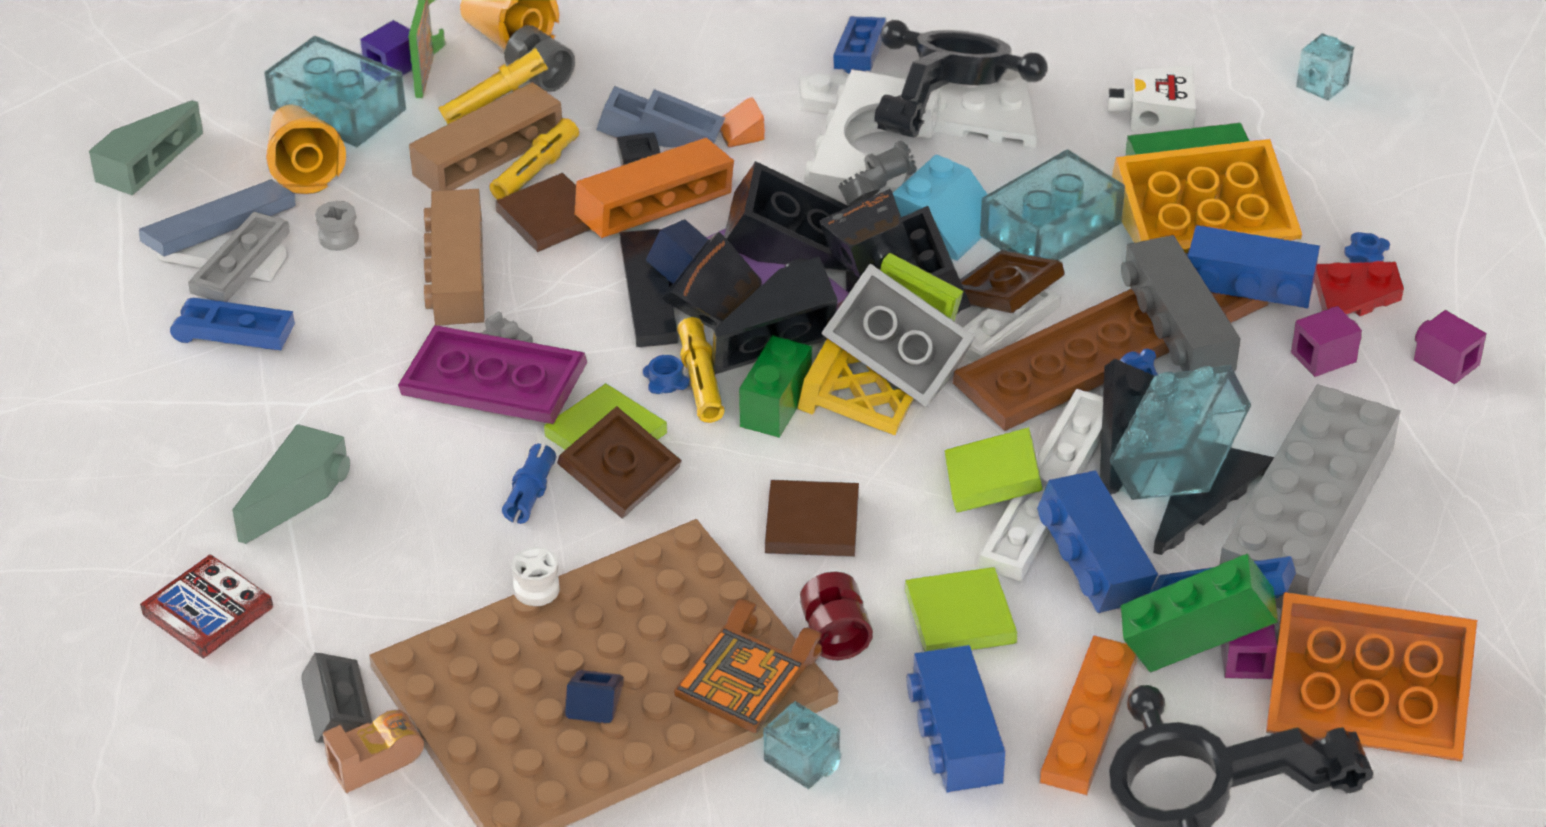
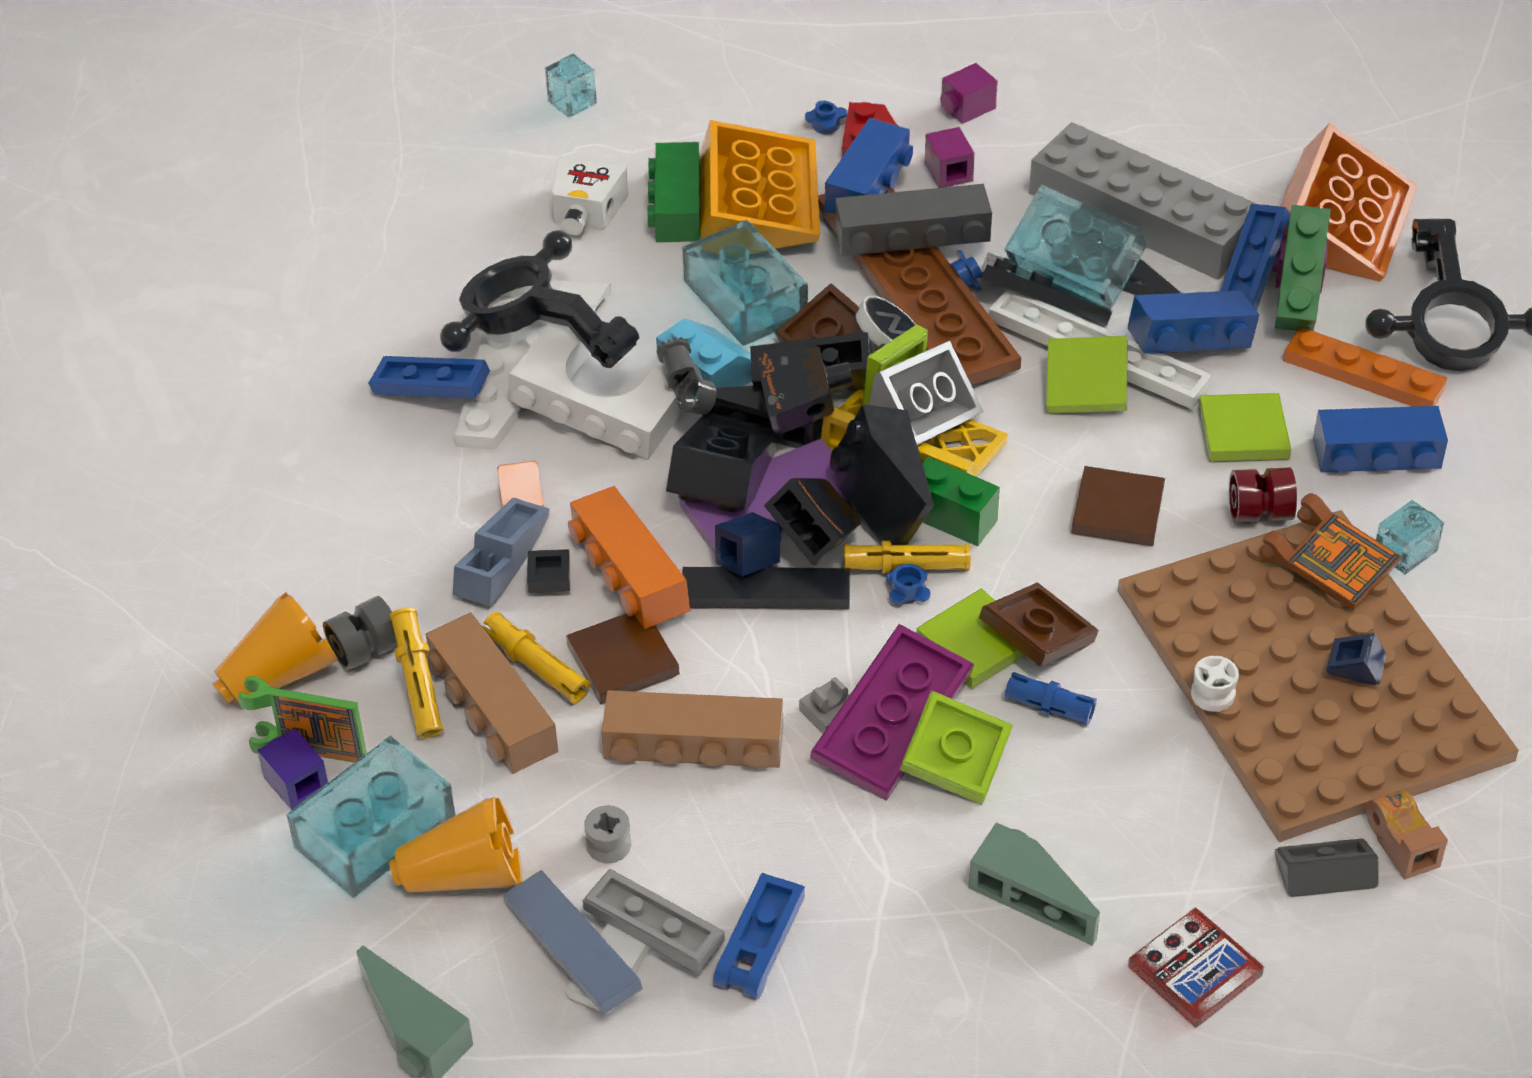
camera: 80 degrees left, 5 degrees up
(450, 417) = (956, 747): none -> lime tile
(998, 304) = (882, 320): none -> tile

